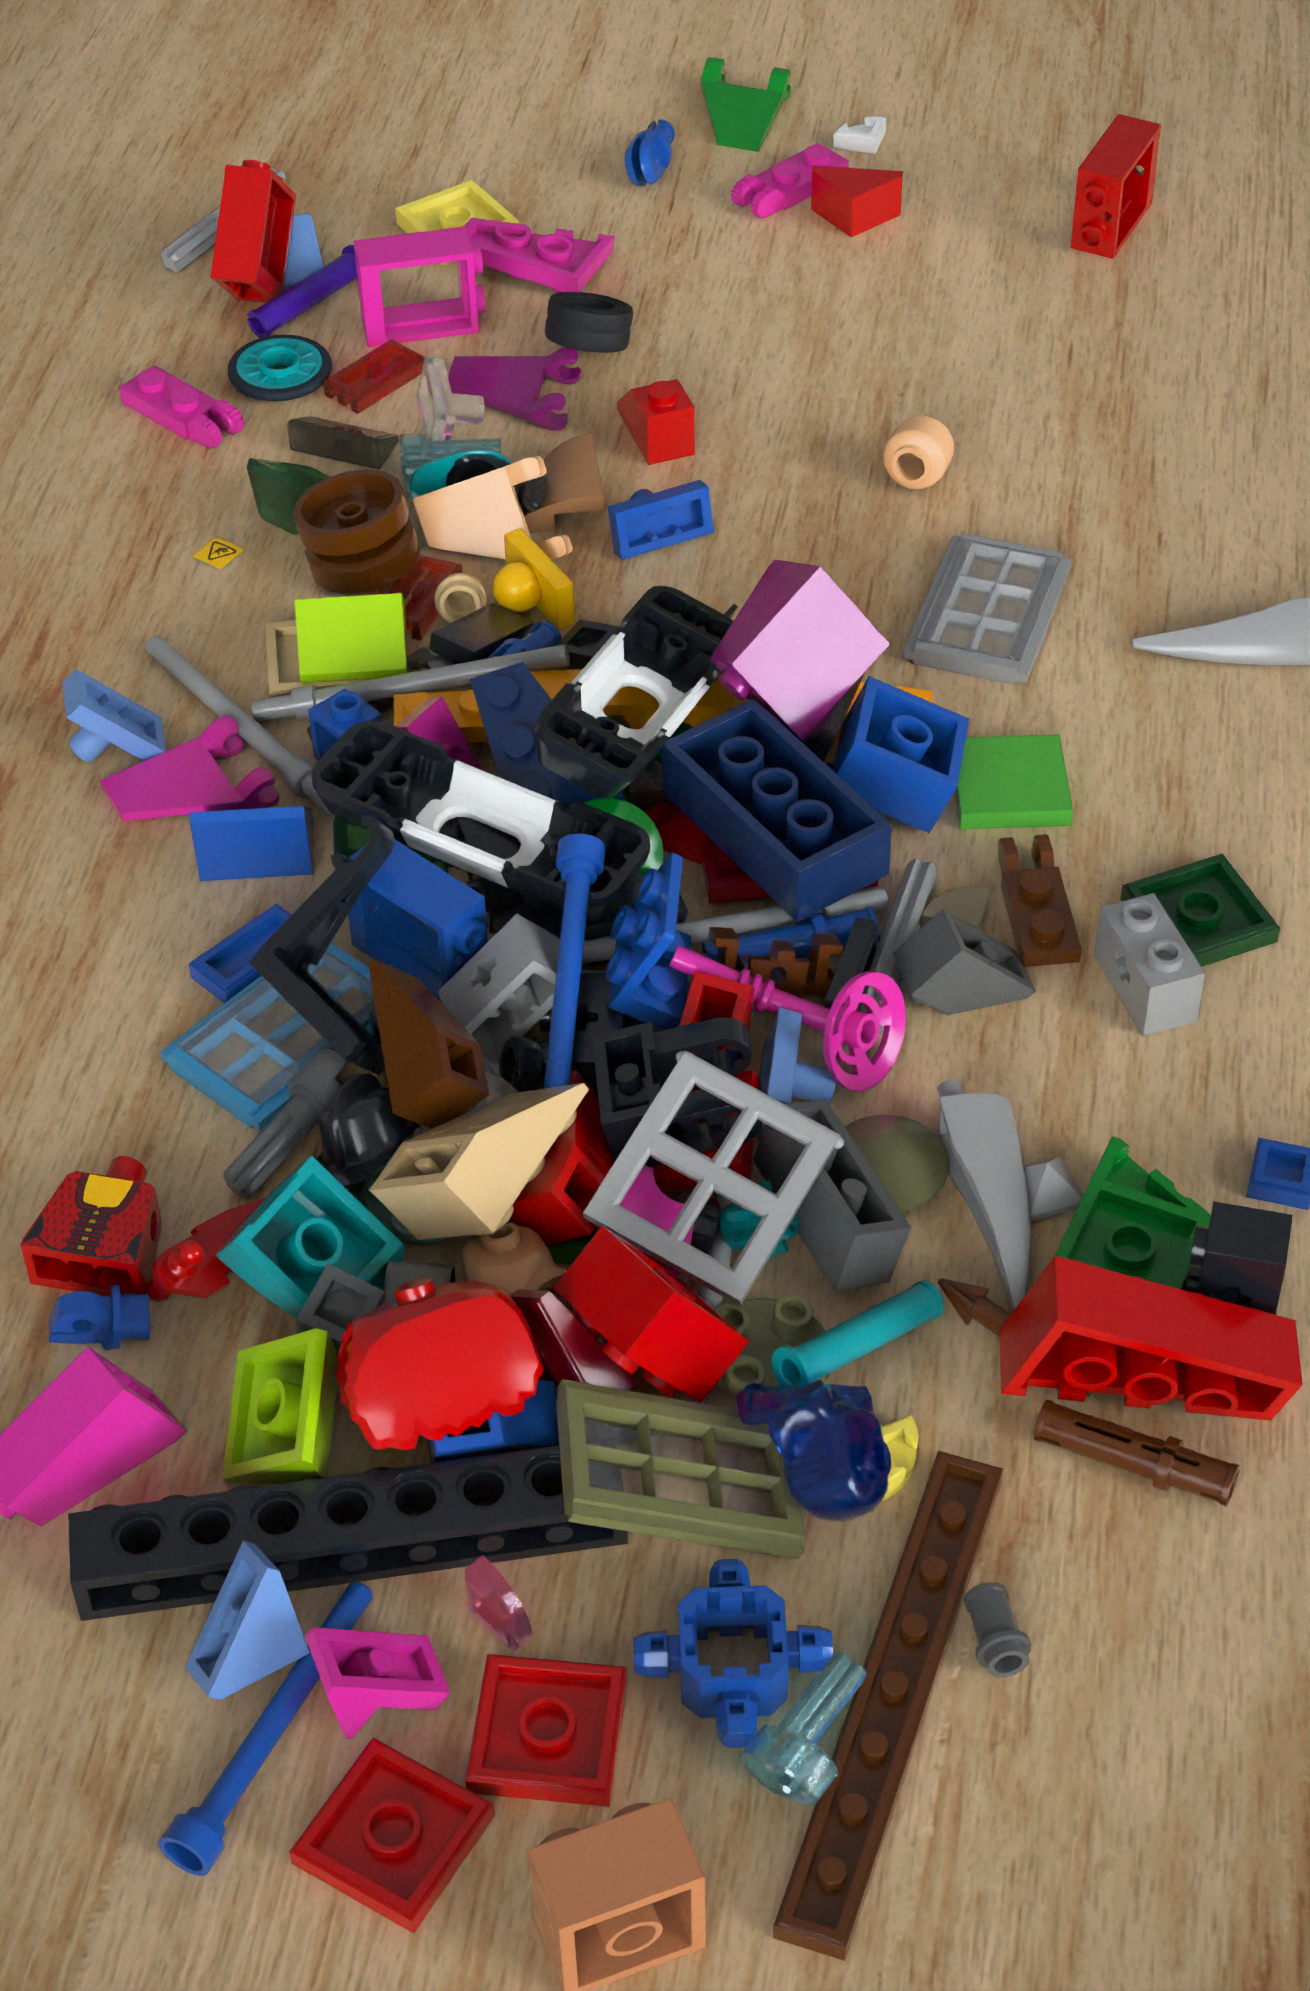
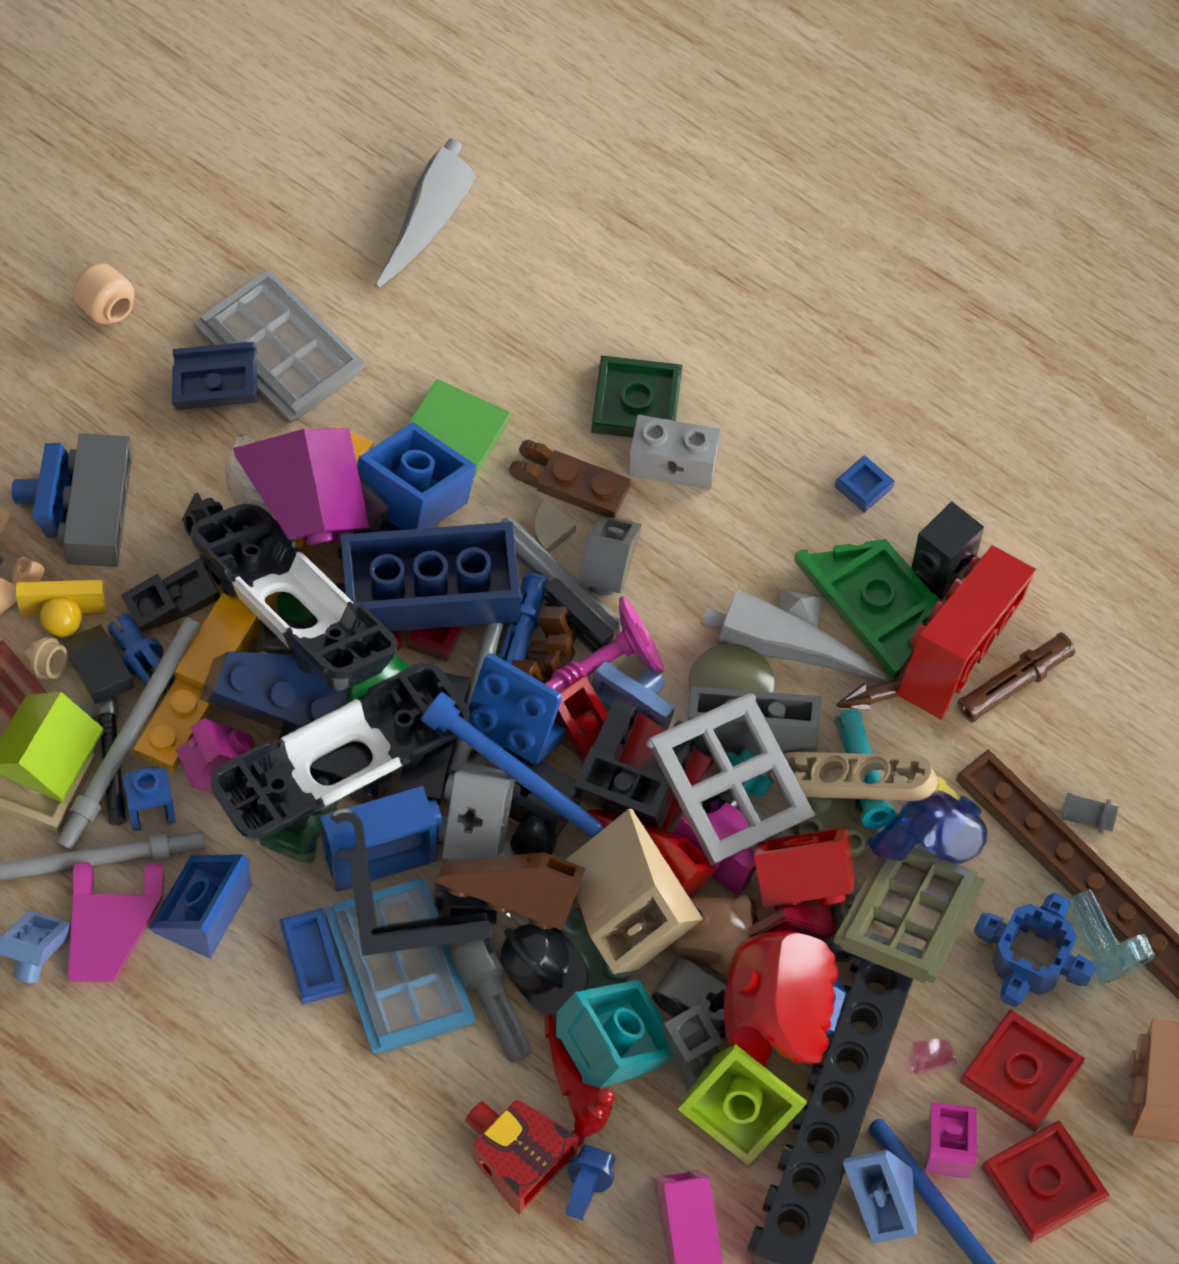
camera: 65 degrees left, 15 degrees up
(678, 552) = (96, 500): none -> dark grey brick
(825, 1315) = (855, 769): none -> tan beam
(899, 569) = (214, 375): none -> dark blue plate

